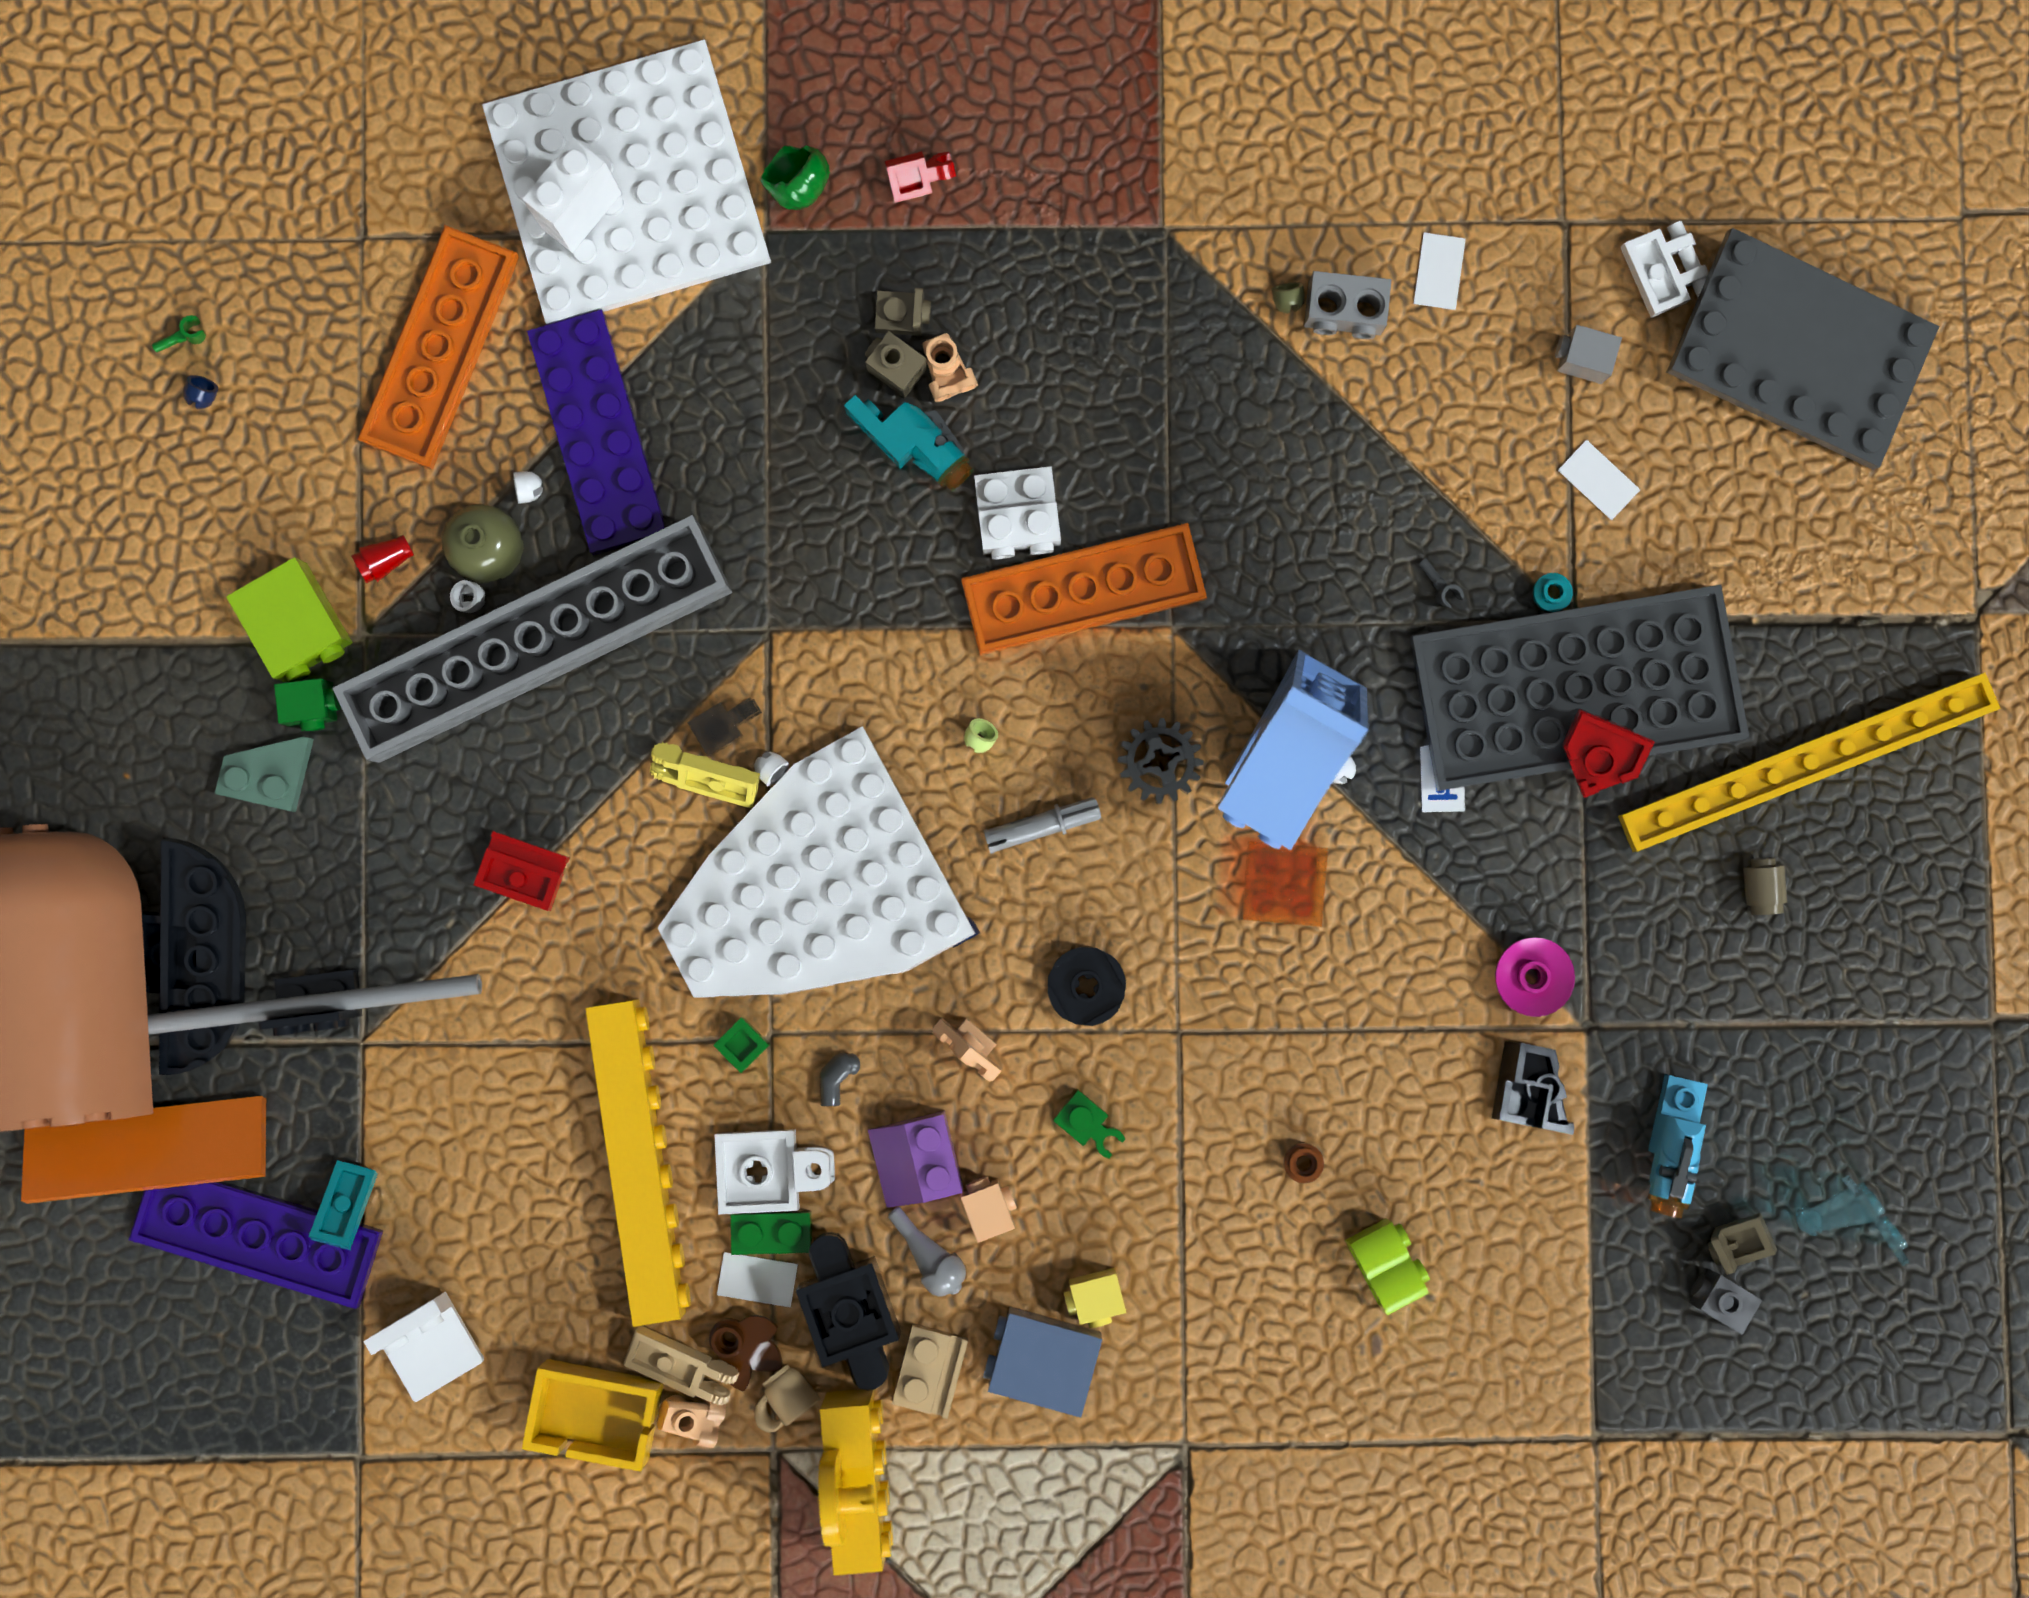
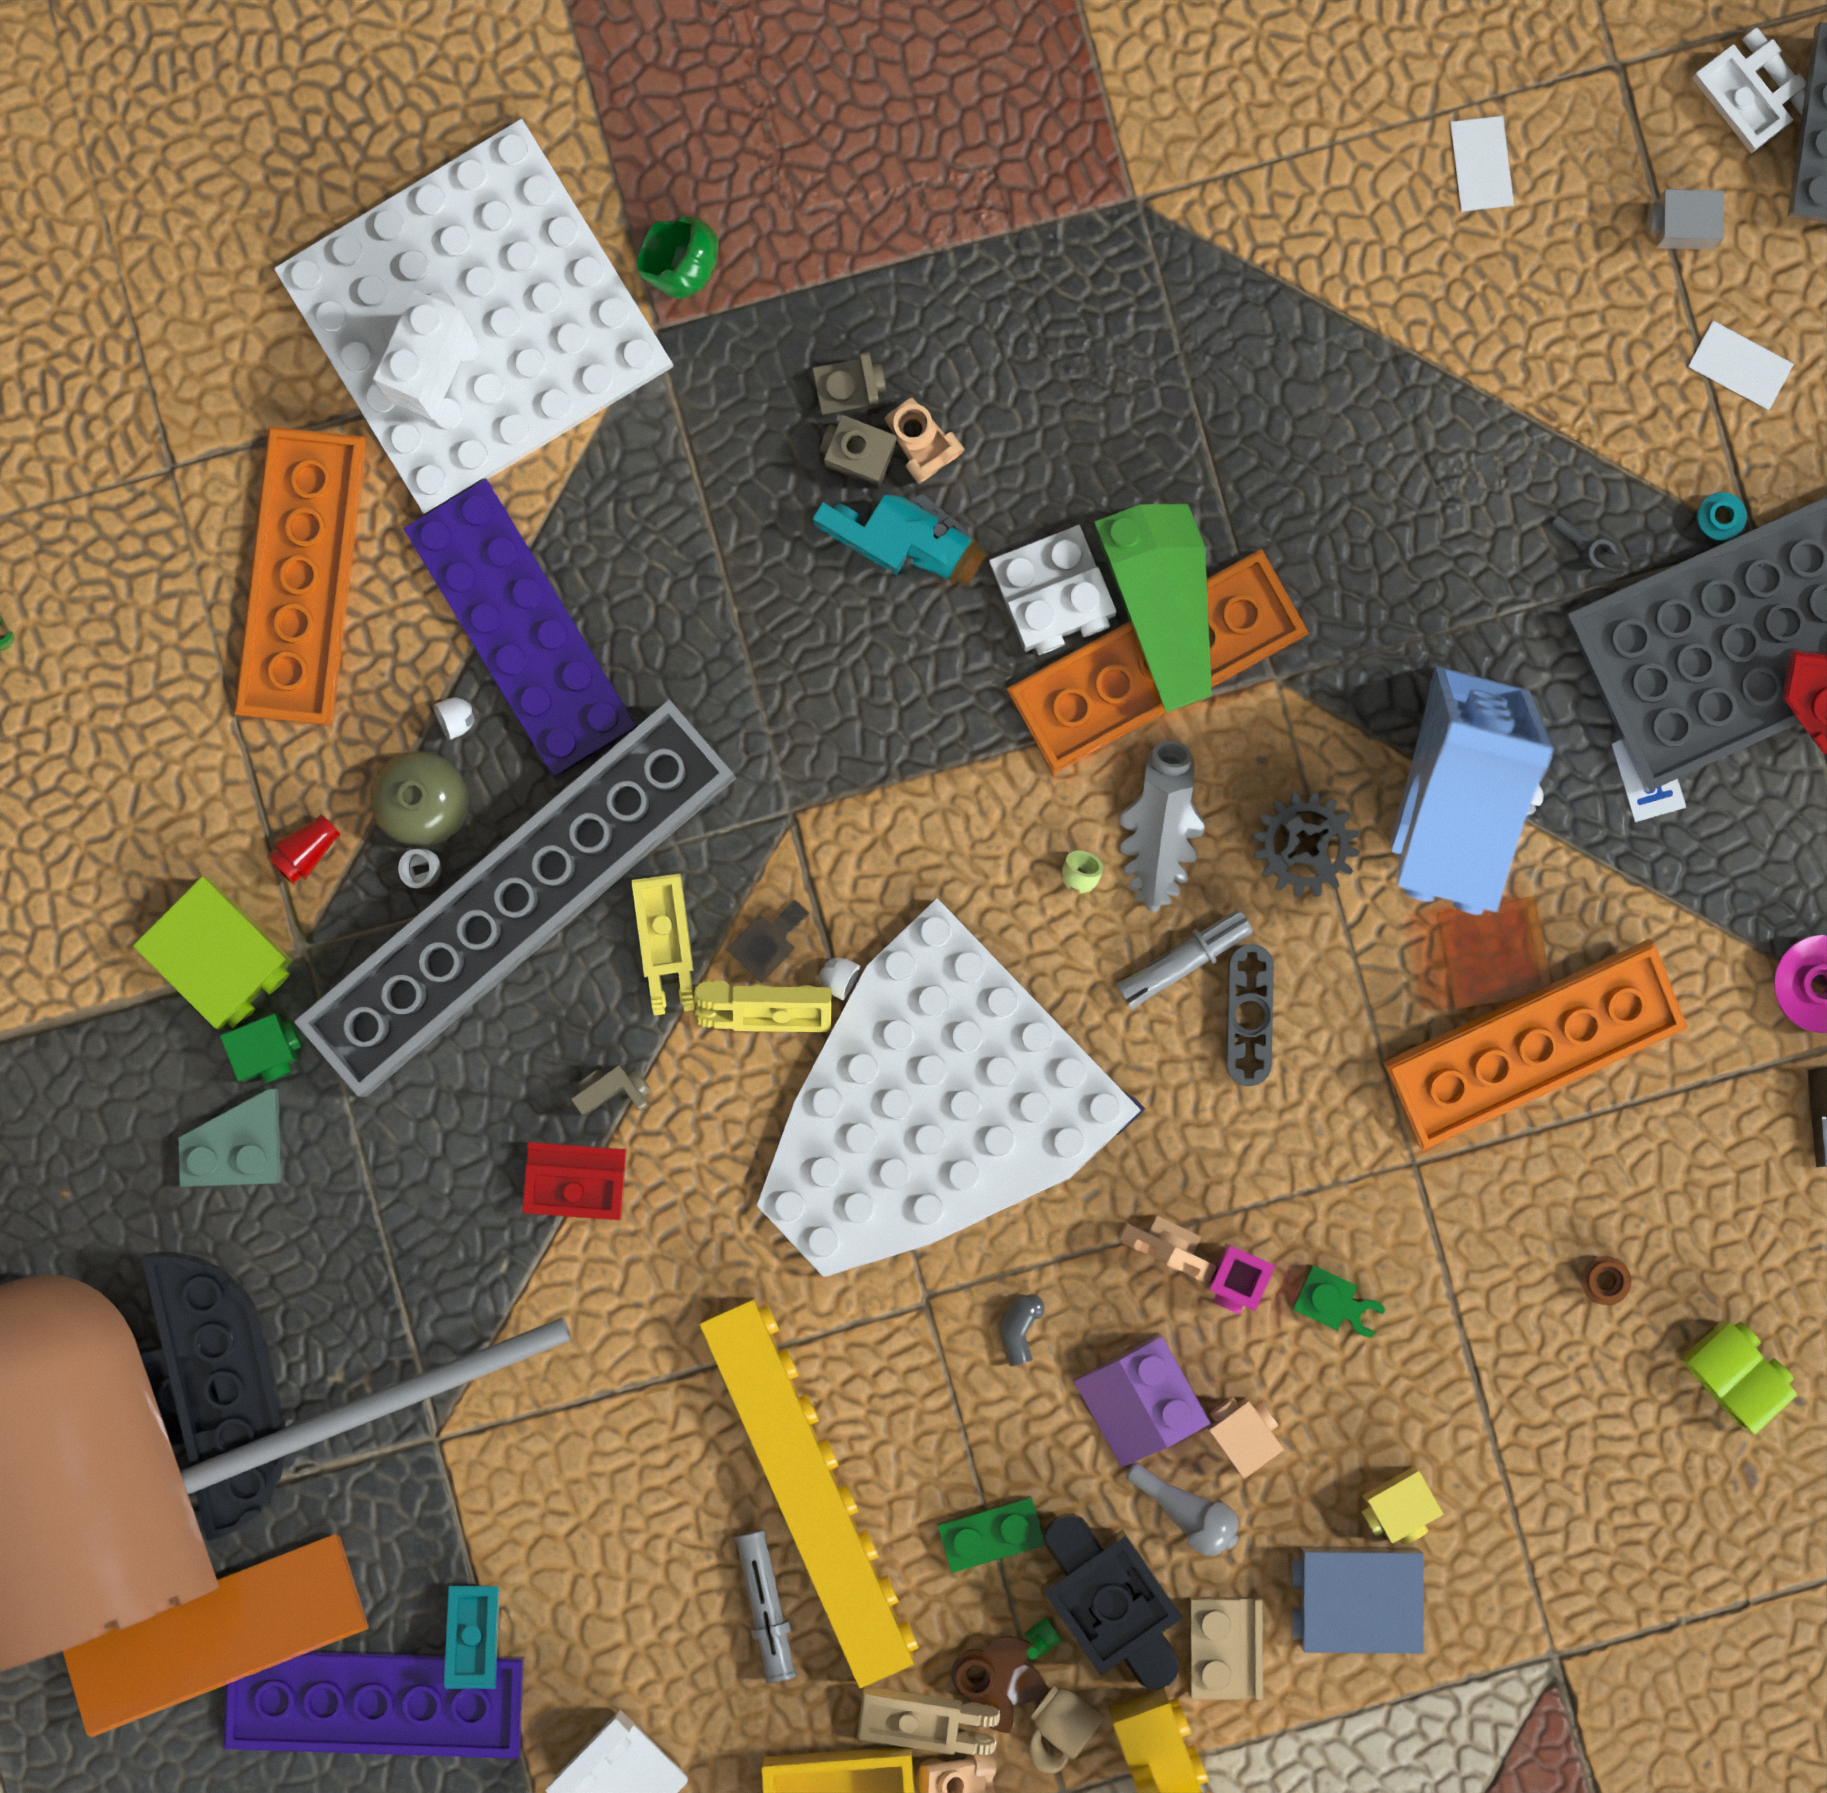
camera: 10 degrees left, 0 degrees up
(199, 390) = (28, 706): dark blue hinge -> none
(313, 985) = (363, 1384): black bracket -> none
(559, 804) = (599, 1088): none -> dark tan bracket
(579, 1242) = (777, 1663): none -> light grey pin
(642, 700) = (664, 937): none -> light yellow hinge
(741, 1044) = (896, 1318): green plate -> none
(757, 1279) = (989, 1595): white sticker -> none
(786, 1165) = (991, 1455): white plate -> none
(788, 1325) = (1042, 1638): none -> green hand
(912, 176) = (818, 216): plate -> none
(1016, 1085) = (1239, 1279): none -> dark pink brick
(1053, 715) = (1161, 825): none -> light grey plant
(1098, 856) = (1263, 978): none -> dark grey beam
(1103, 528) = (1163, 588): none -> bright green wedge
(1108, 992) = (1318, 1138): black plate -> none
(1288, 296) = (1309, 243): olive hinge -> none
(1298, 964) = (1535, 1044): none -> orange tile
(1347, 293) = (1378, 223): light grey brick -> none

